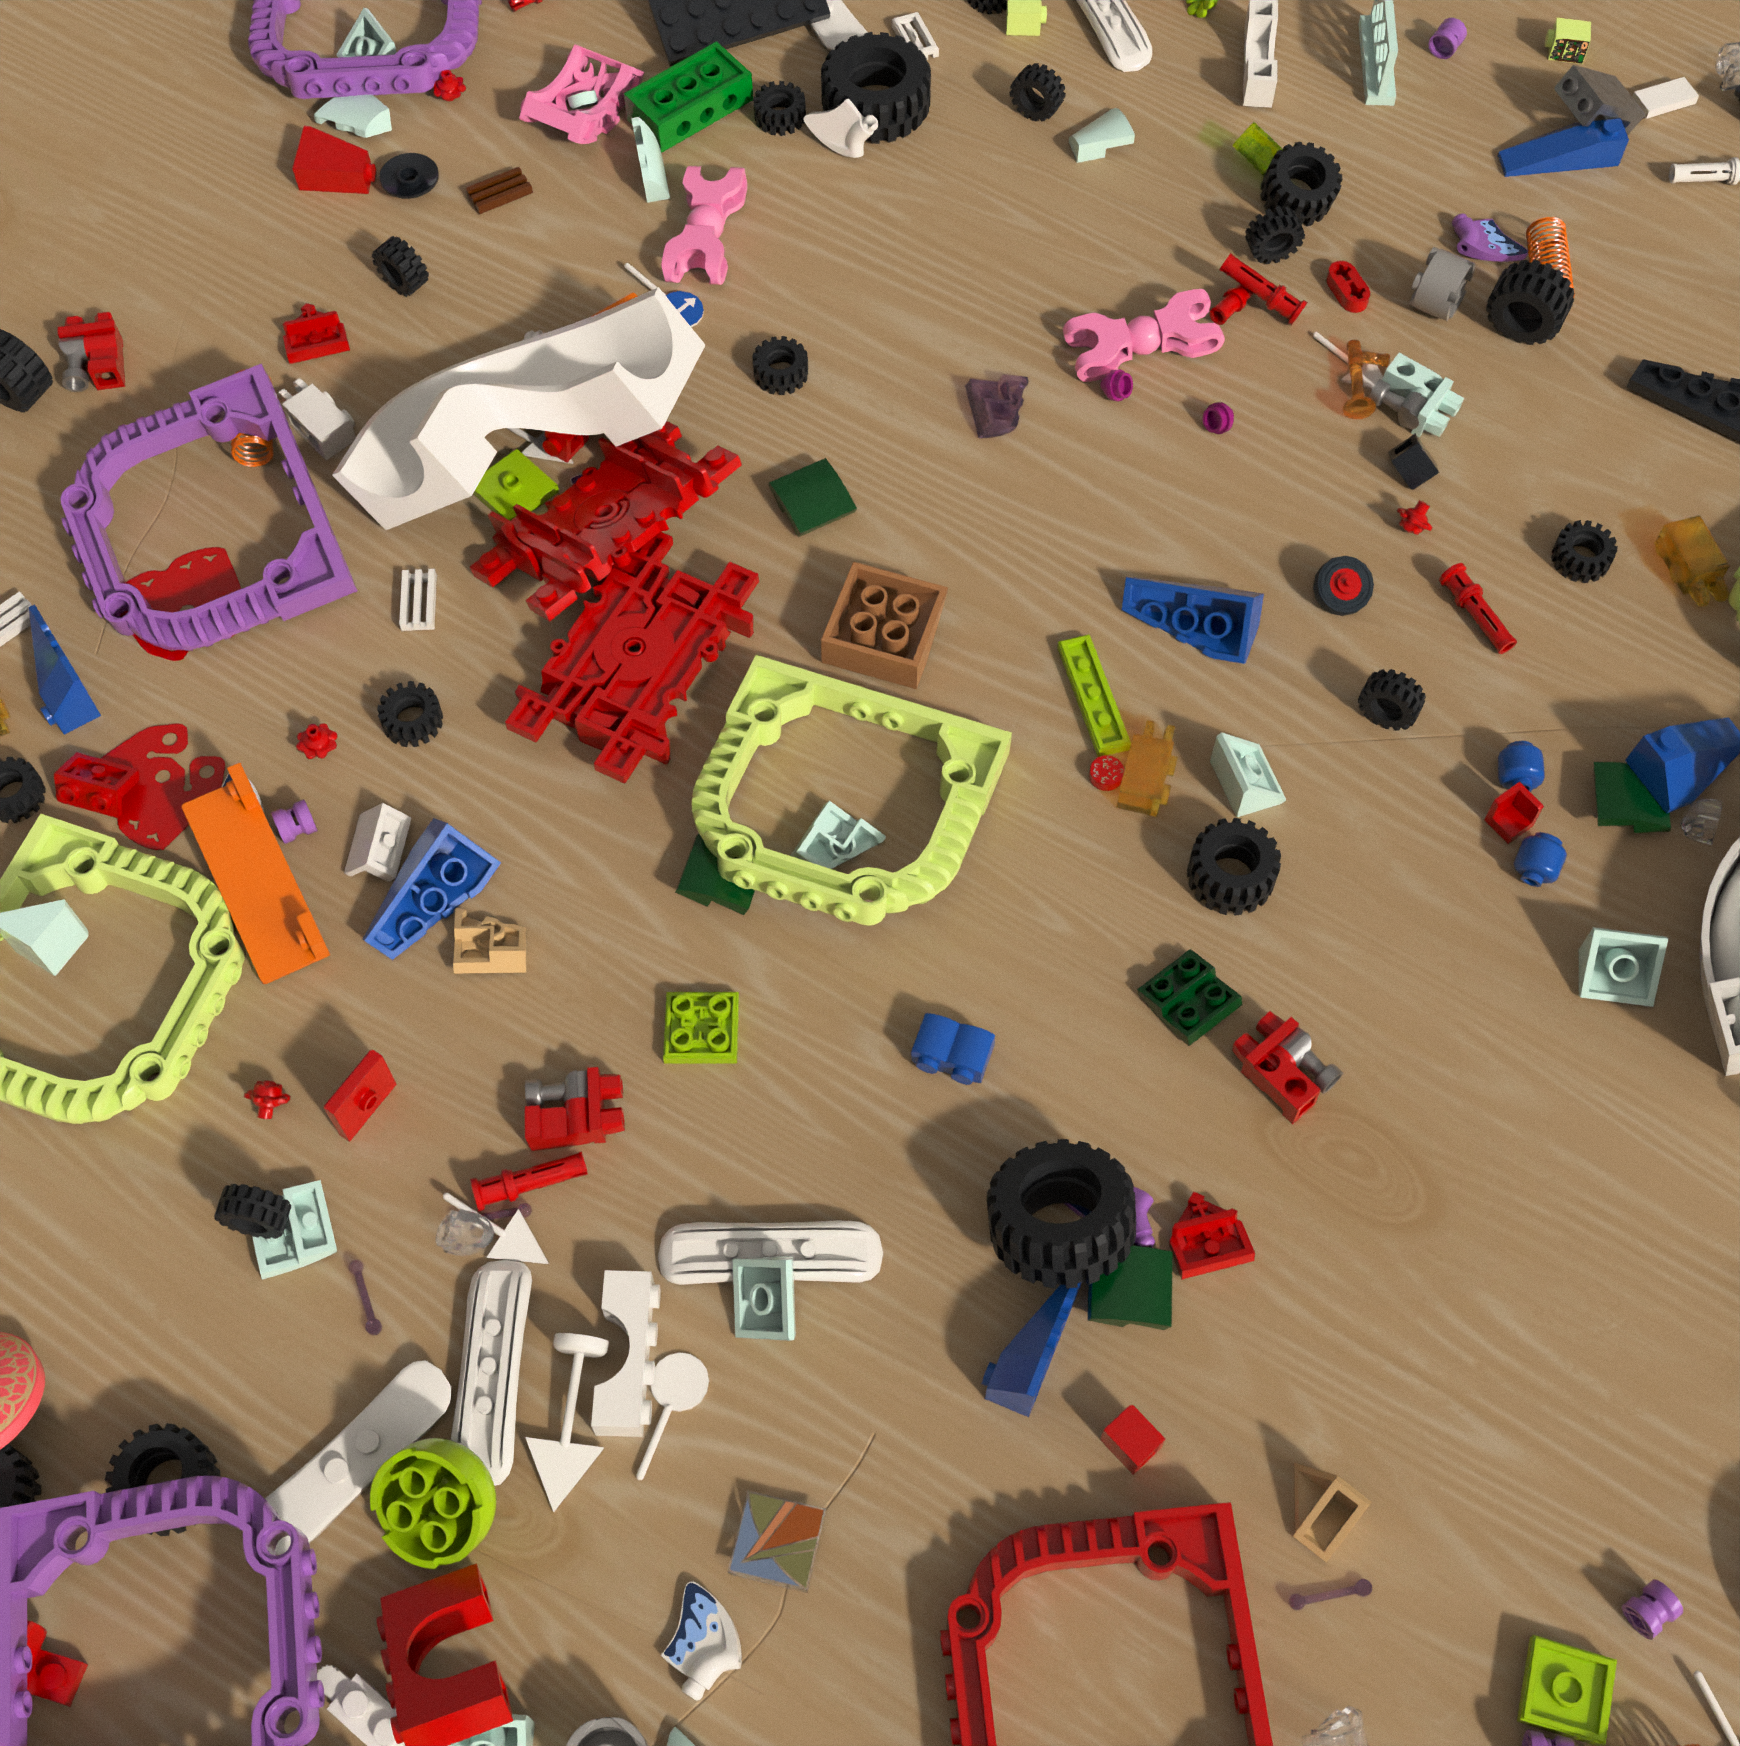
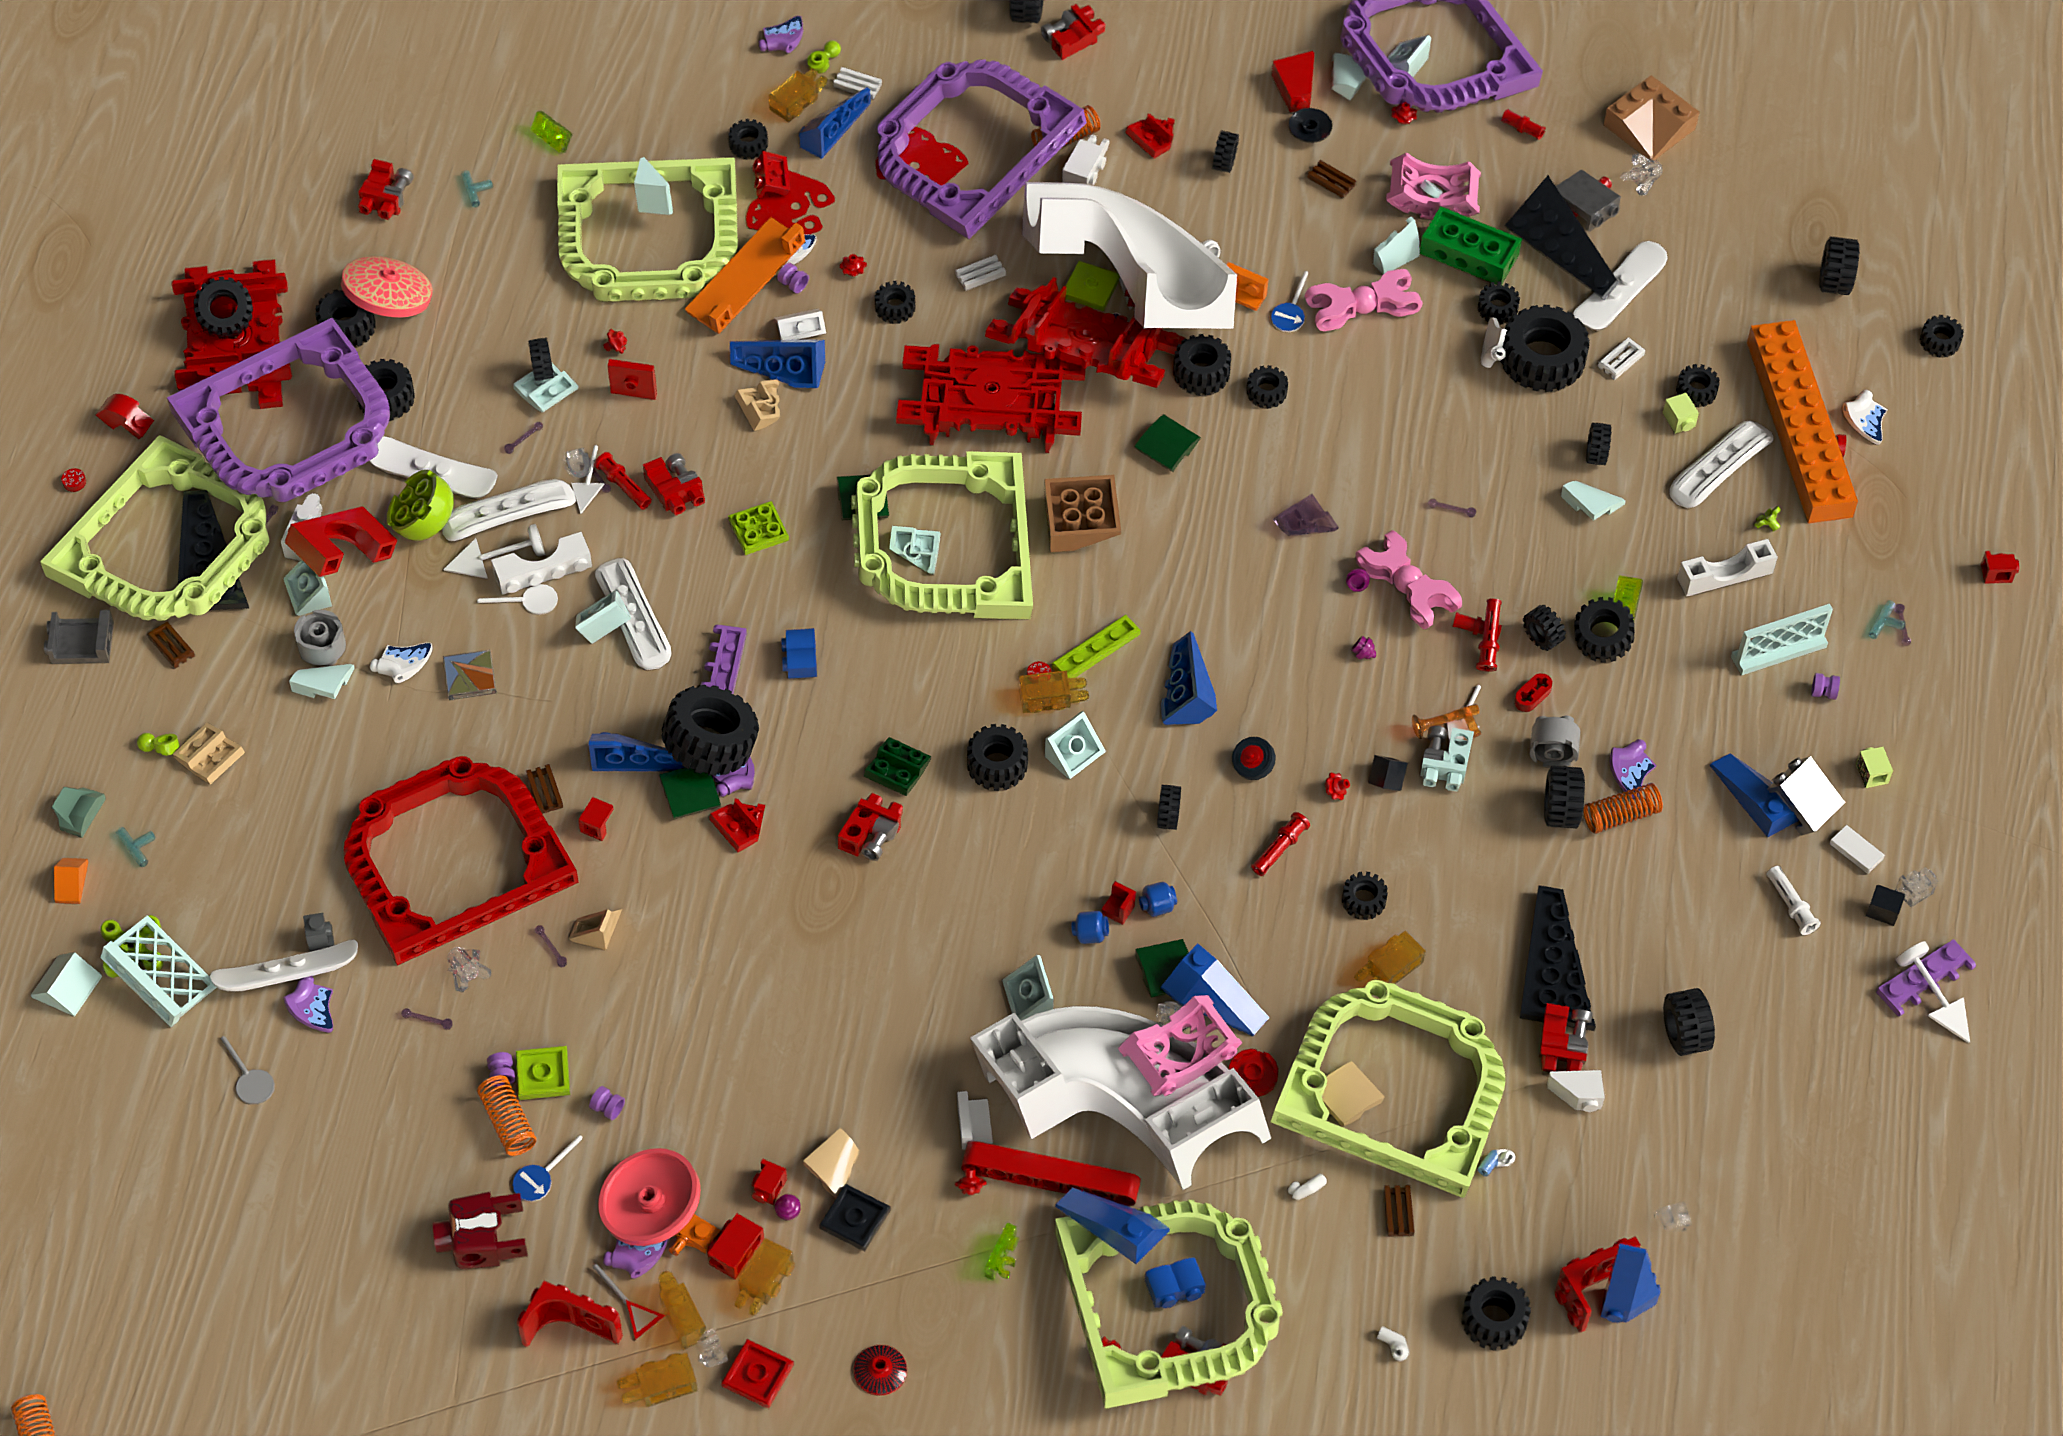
camera: 65 degrees right, 5 degrees down
(711, 395) = (1202, 350): none -> black tyre
(929, 1157) = (728, 657): none -> medium lavender hinge
(1044, 1485) = (539, 773): none -> reddish brown tile
(1062, 248) = (1471, 512): none -> hinge

